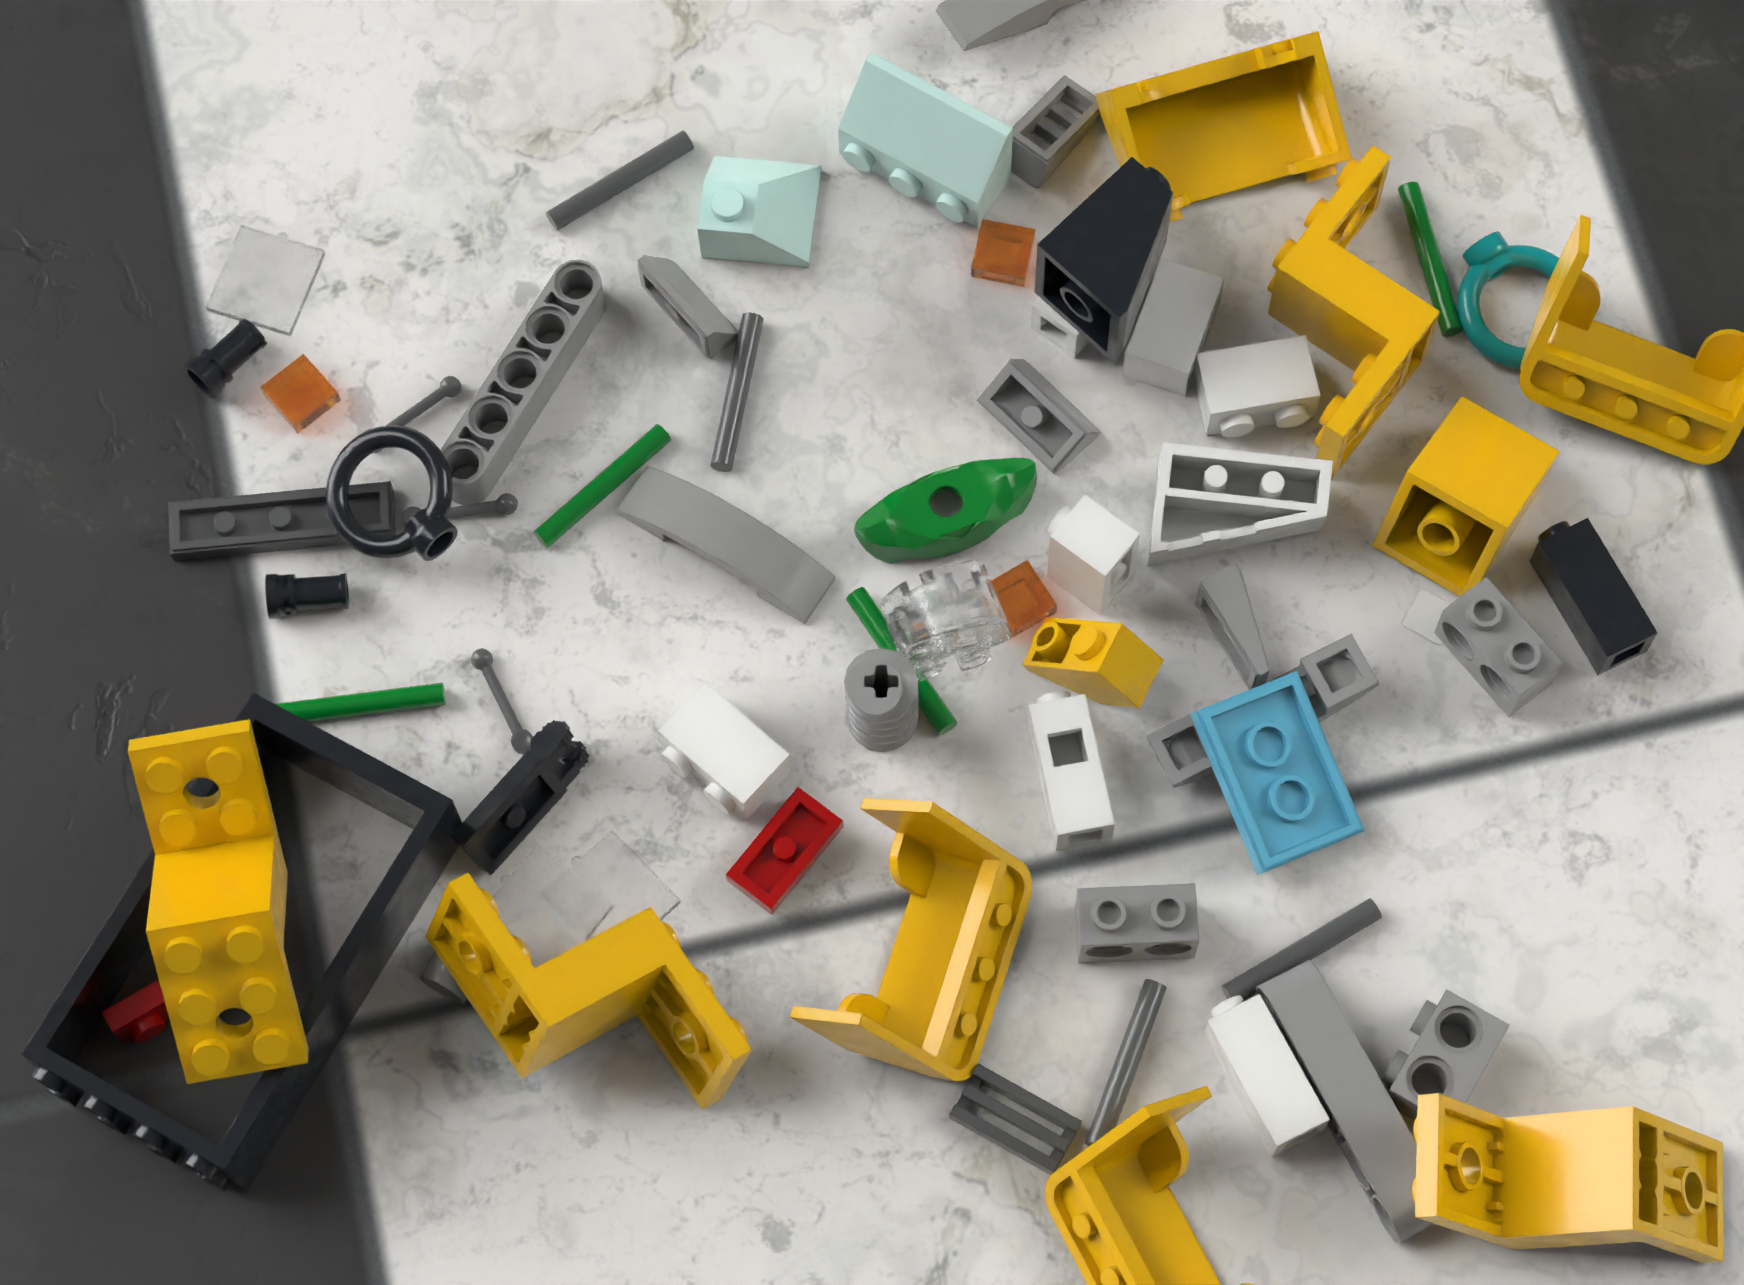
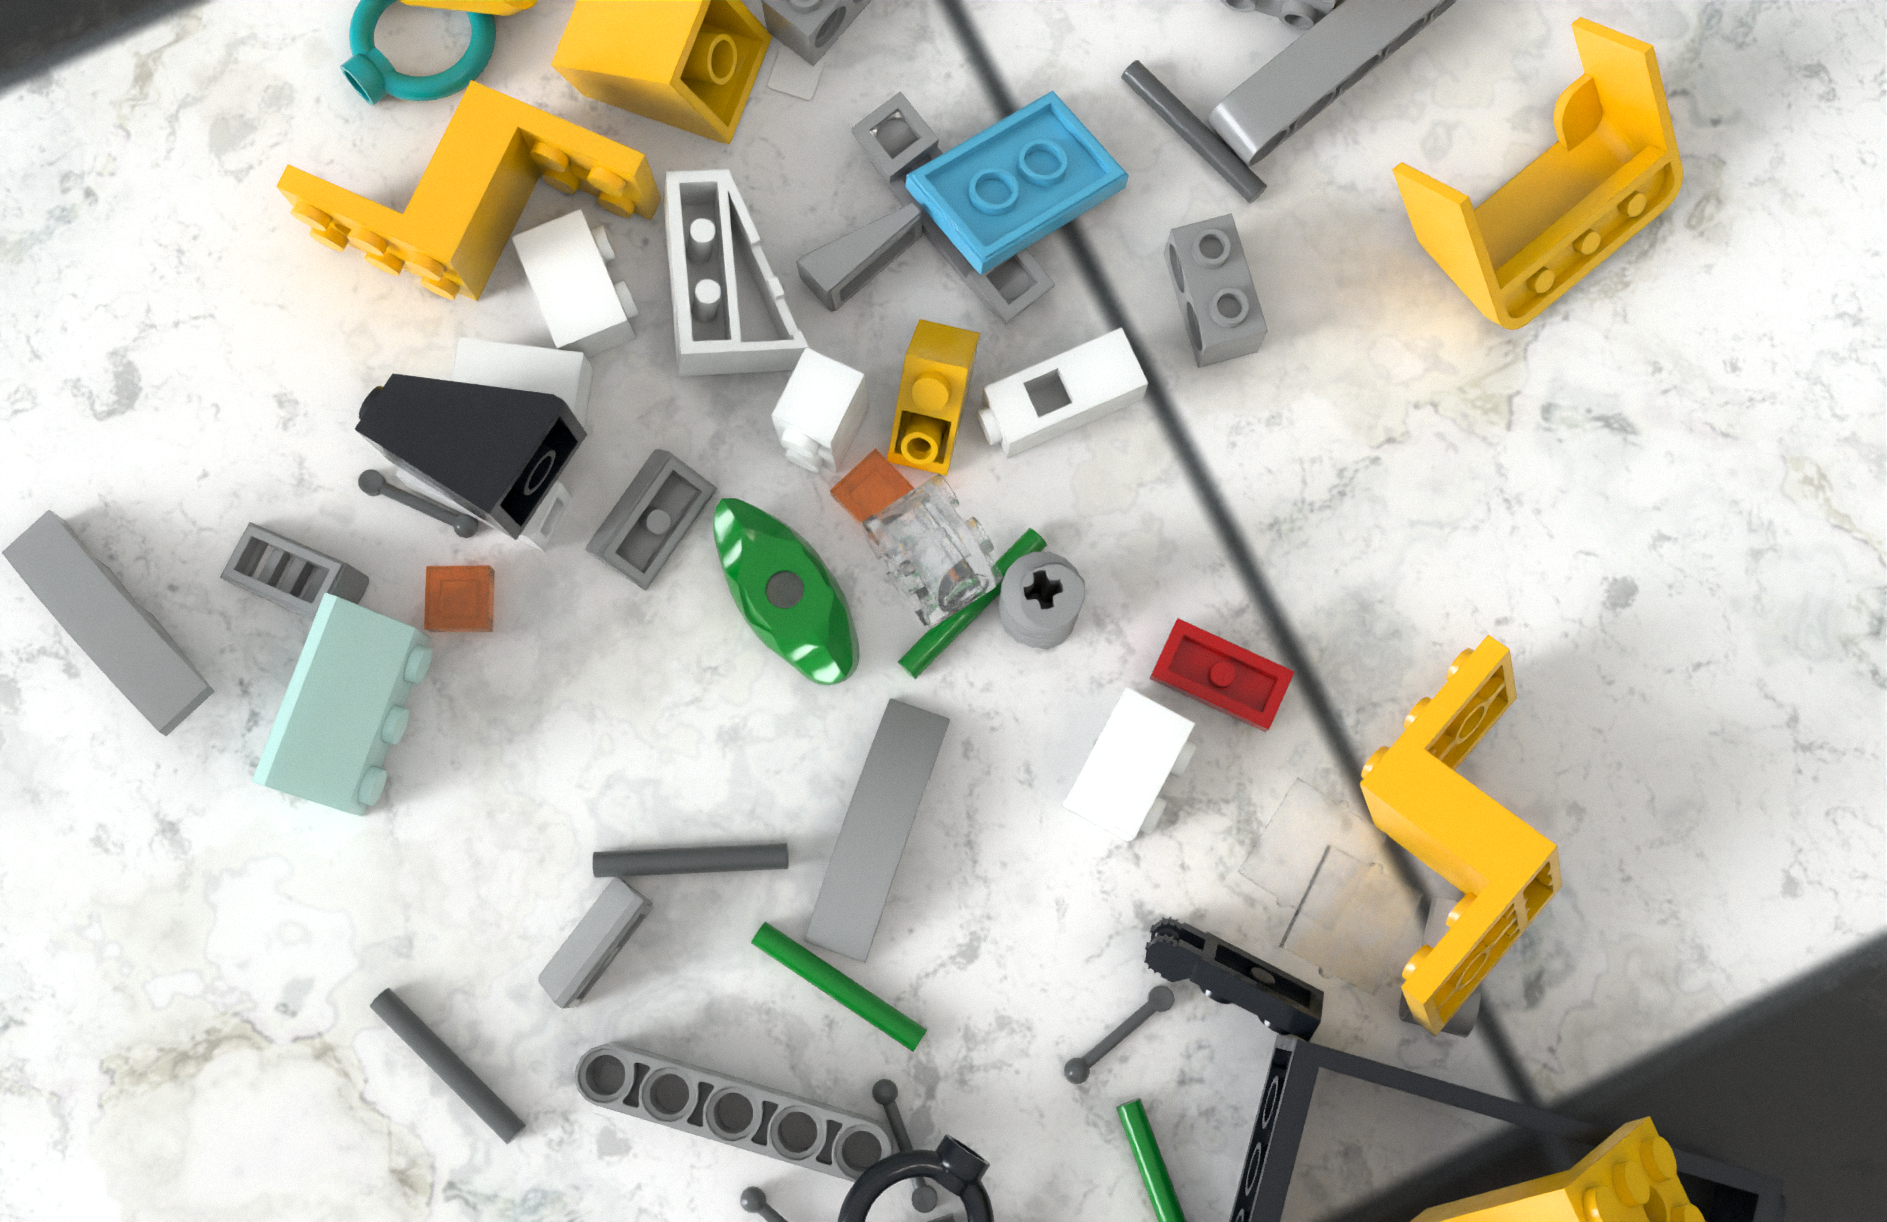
camera: 105 degrees left, 10 degrees up
(758, 211) = (455, 888): light aqua slope -> none
(947, 952) = (1308, 485): yellow windscreen -> none
(1028, 1100) = (1457, 329): dark grey tile -> none
(1127, 1060) = (1356, 279): dark grey bar -> none
(1231, 121) = (249, 377): yellow windscreen -> none
(1264, 1073) = (1338, 136): white brick -> none
(1430, 258) = (382, 138): green bar -> none

